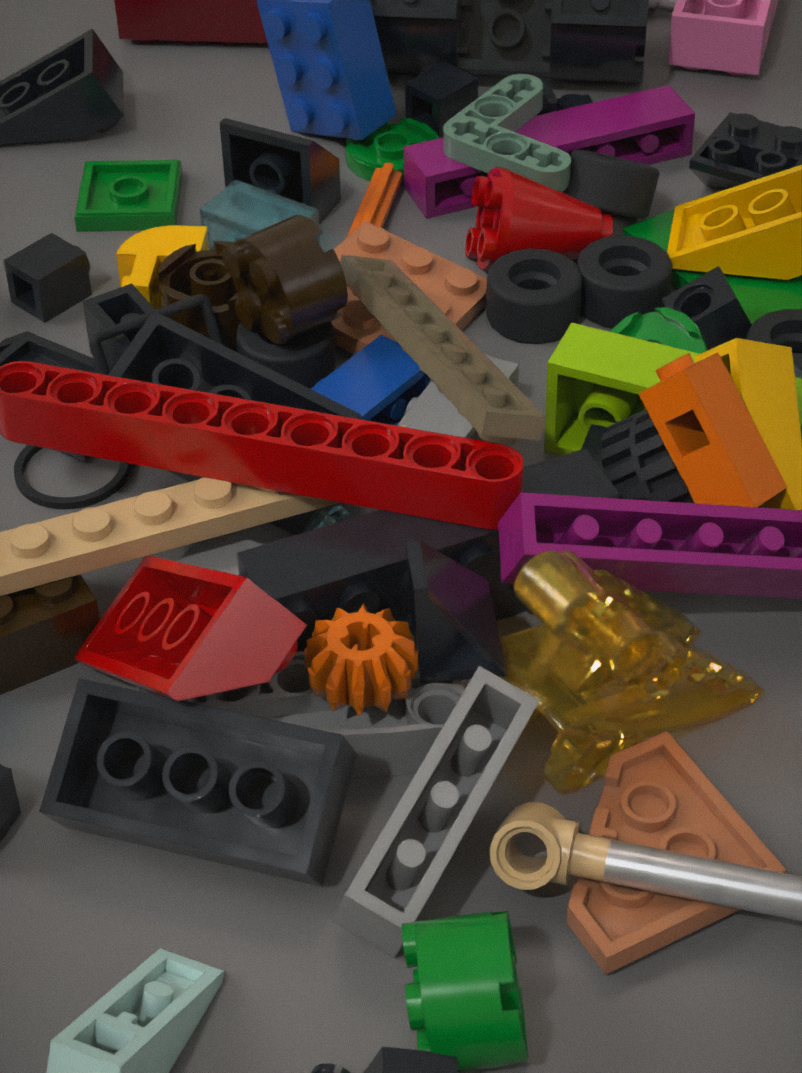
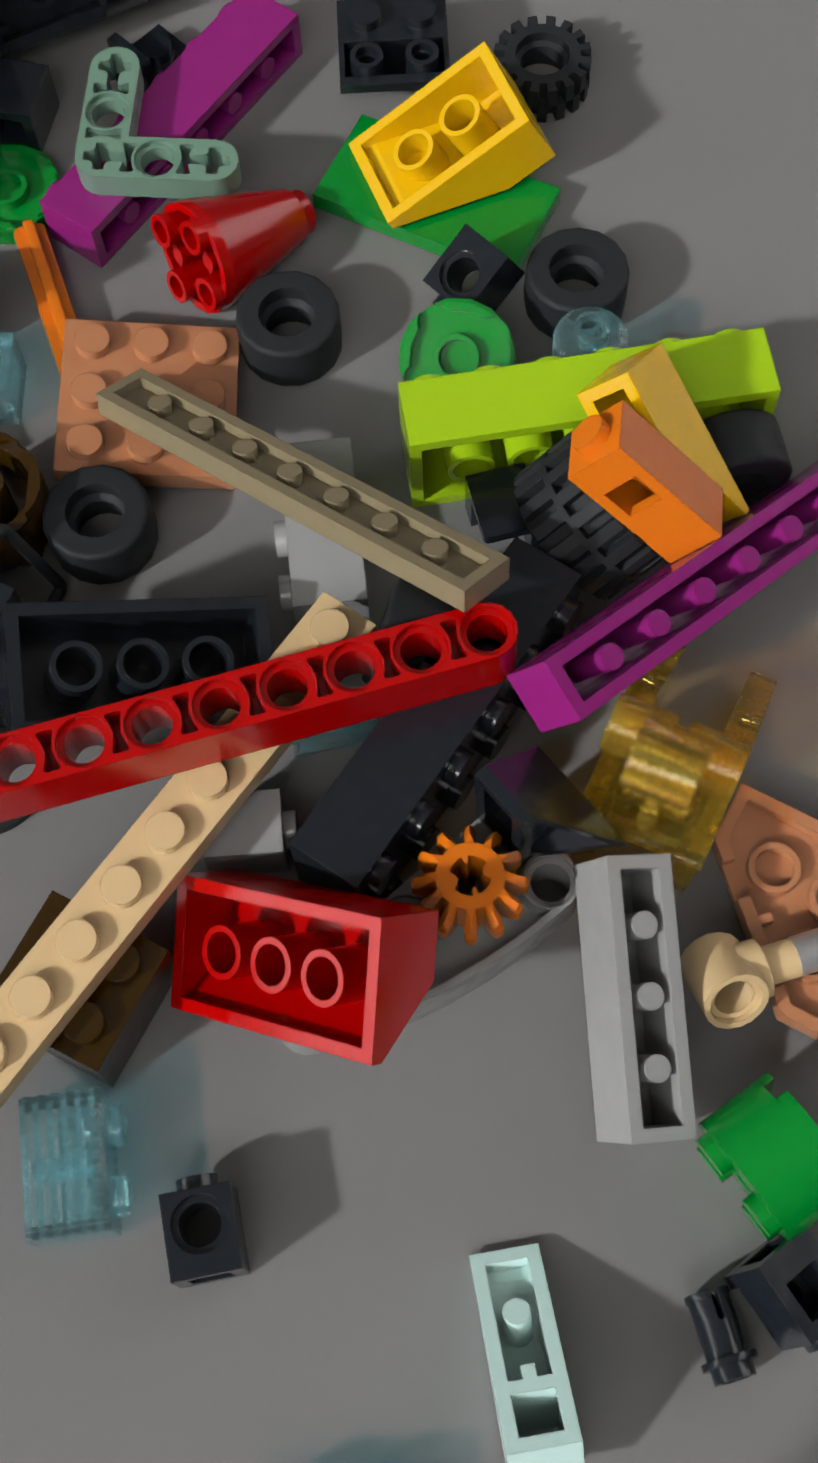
camera: 30 degrees left, 25 degrees up
(200, 781) = (453, 1089): black brick -> none
(285, 280) = (82, 470): dark brown brick -> none
(376, 382) = (220, 540): blue brick -> none
(612, 183) = (278, 148): black tyre -> none
(622, 278) = (370, 239): black tyre -> none

